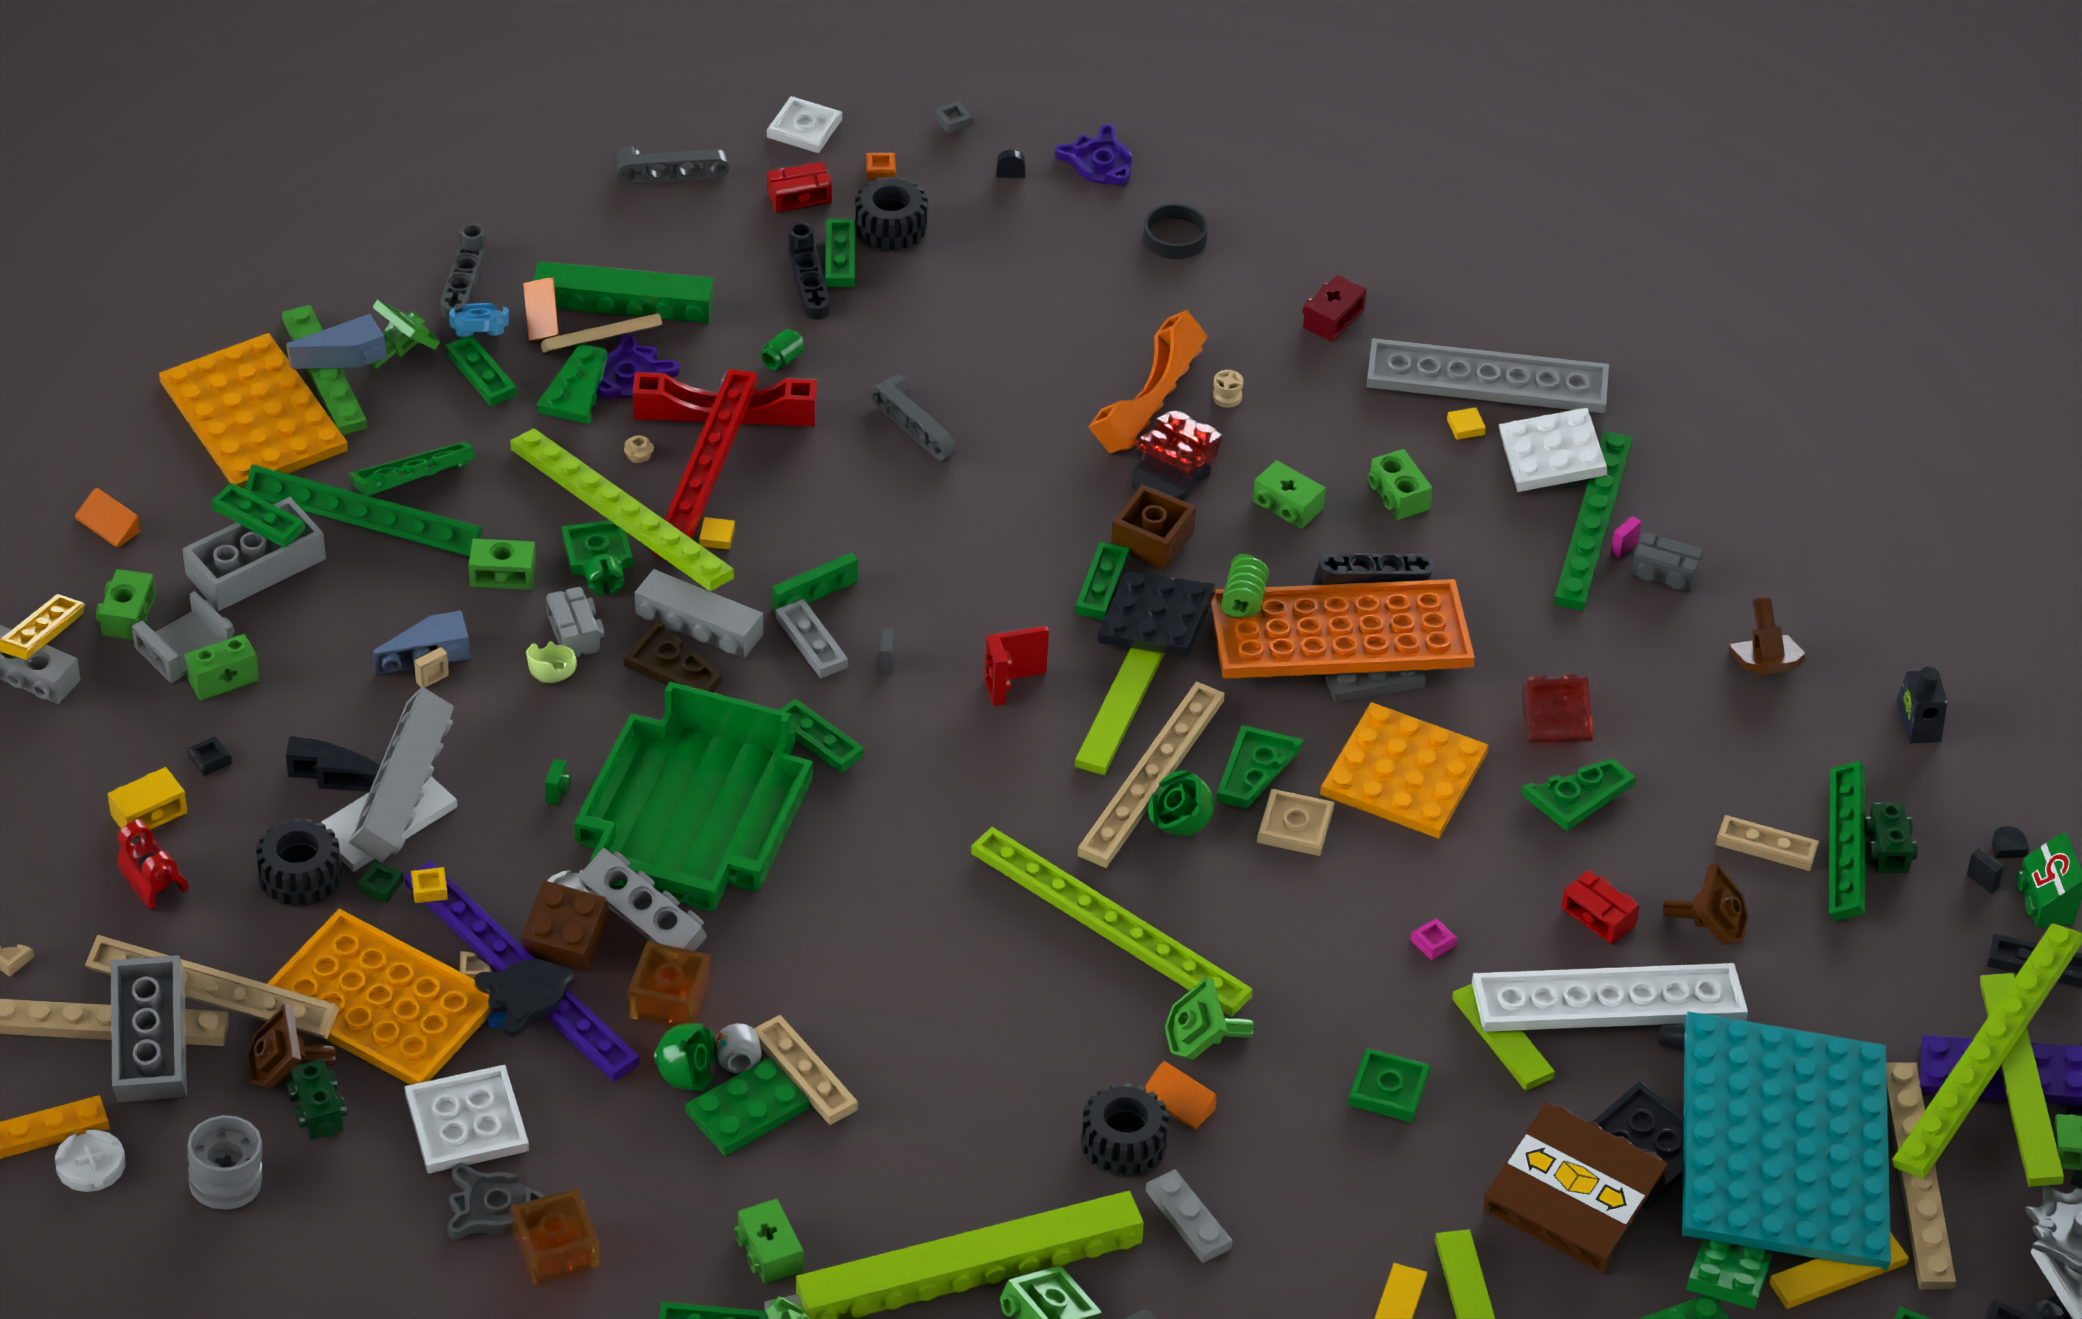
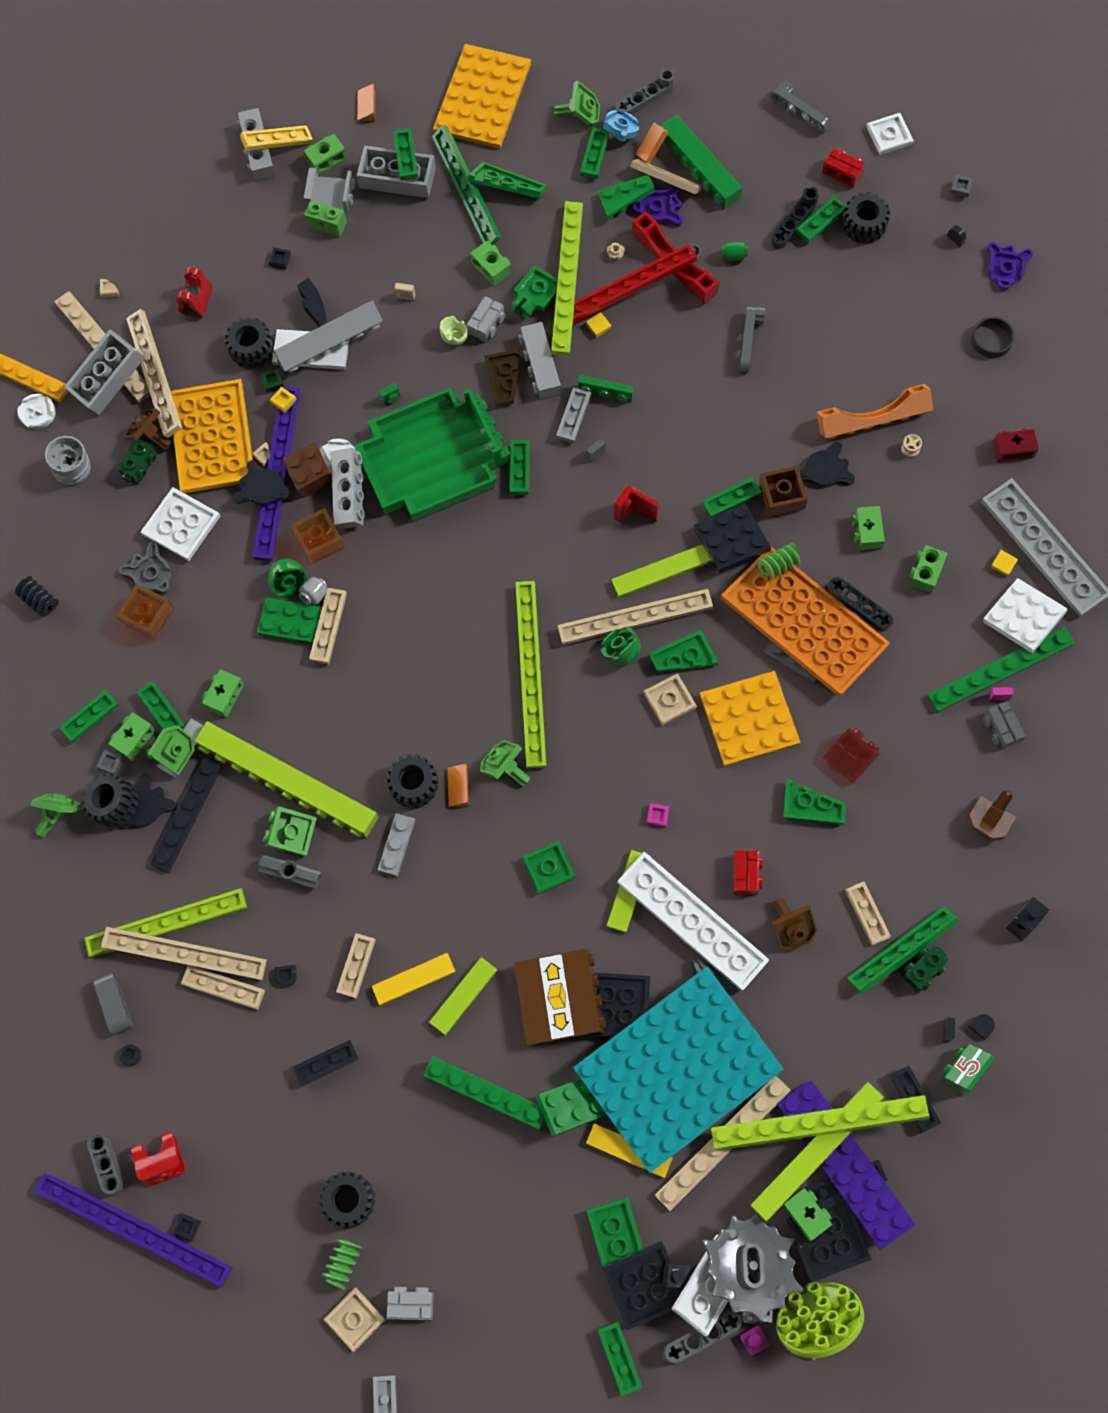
camera: 55 degrees right, 25 degrees up
(152, 798) = (228, 260): yellow brick -> none
(329, 382) = (534, 98): bright green plate -> none
(340, 346) = (547, 94): sand blue slope -> none
(433, 632) = (424, 278): sand blue slope -> none
(880, 165) = (898, 186): orange tile -> none
(1181, 441) = (851, 456): clear red plate -> none

